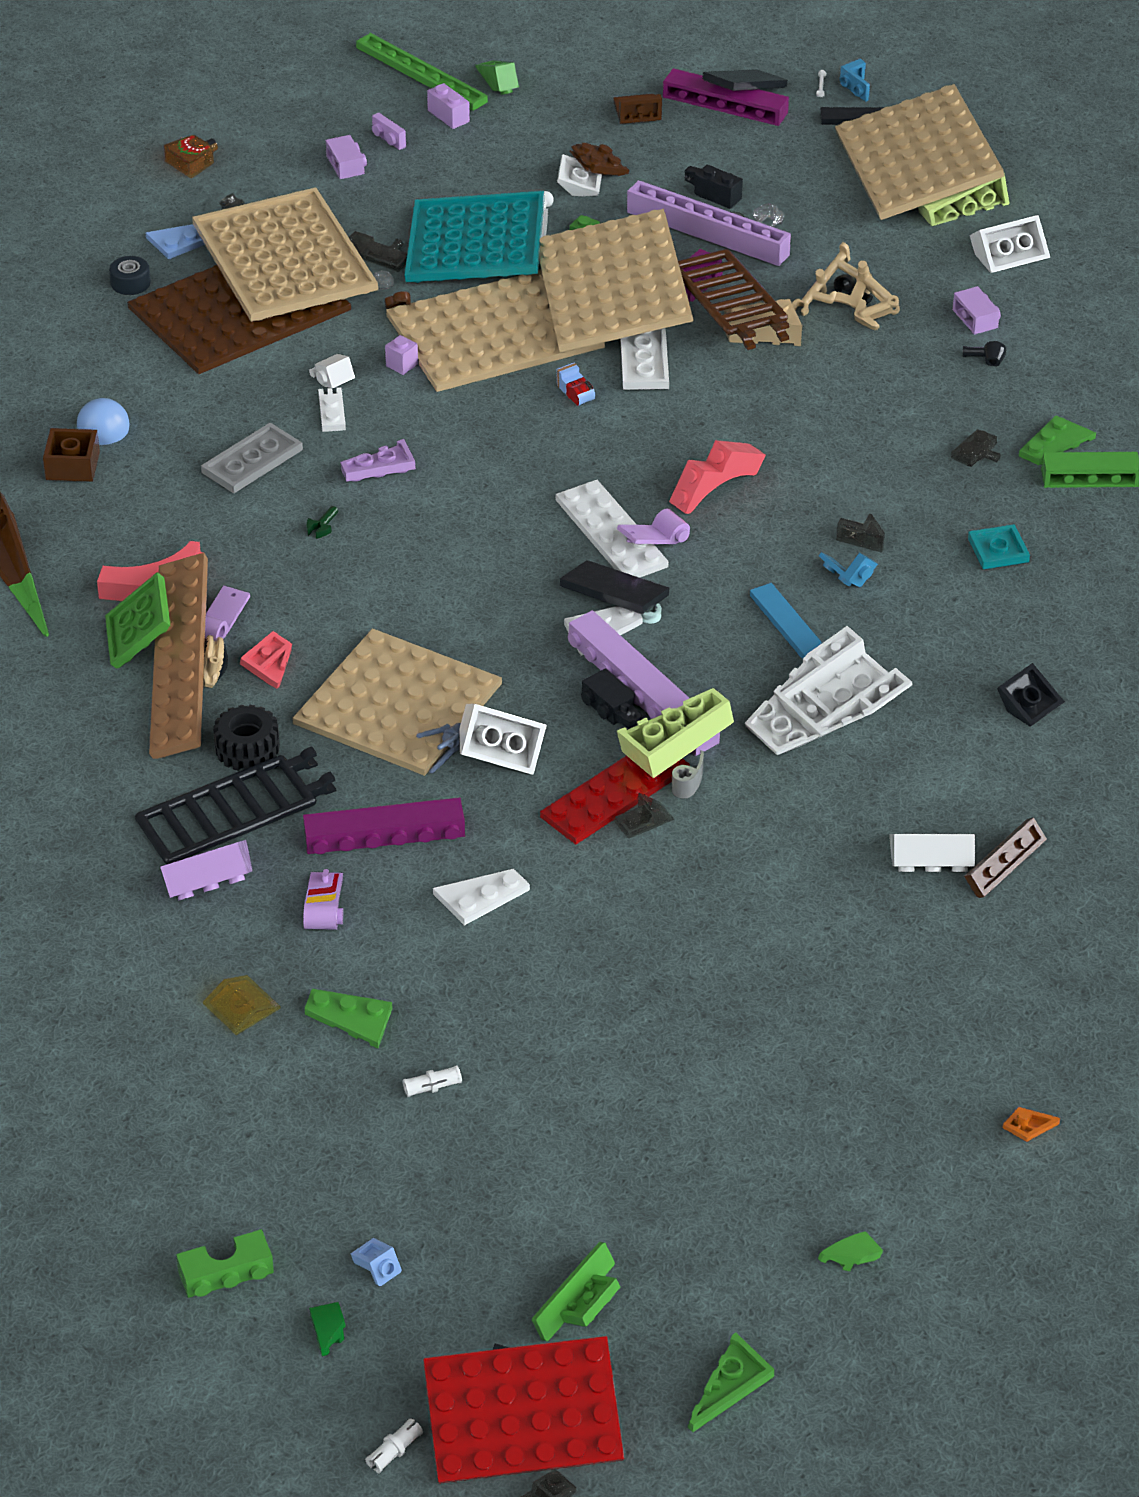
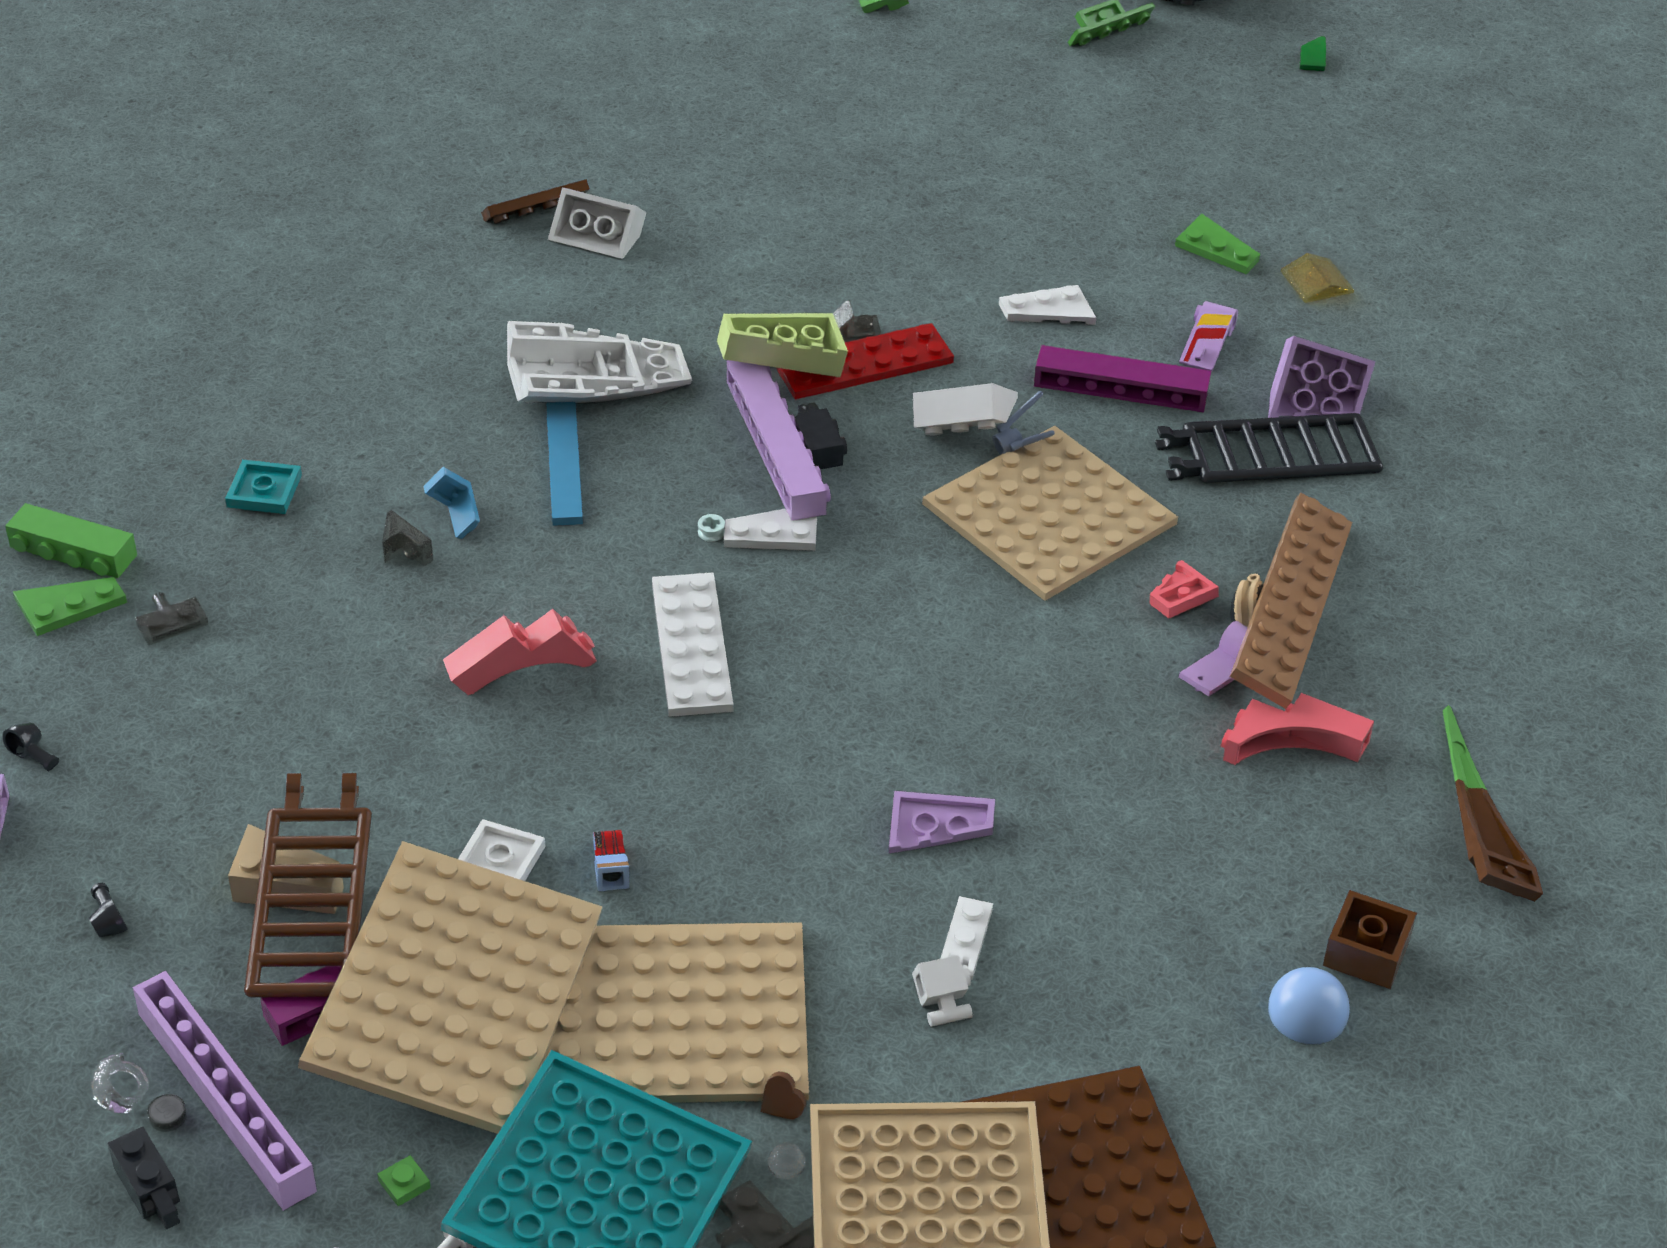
camera: 160 degrees left, 0 degrees up
(137, 620) = (1334, 647): bright green plate -> none
(204, 1274) = (1407, 99): bright green arch -> none
(246, 736) = (1240, 496): black tyre -> none
(251, 457) = (1109, 879): light grey plate -> none
(322, 523) = (1049, 759): dark green bar -> none
(378, 1259) = (1261, 77): light blue bracket -> none
(401, 354) = (829, 981): lavender brick -> none
(432, 1081) = (1163, 178): white pin -> none
(614, 587) = (738, 555): black tile -> none
(665, 529) = (629, 616): lavender door -> none
(864, 284) = (97, 899): tan piece -> none
(1029, 696) = (381, 327): black slope -> none
(1029, 1123) = (679, 36): orange piece -> none

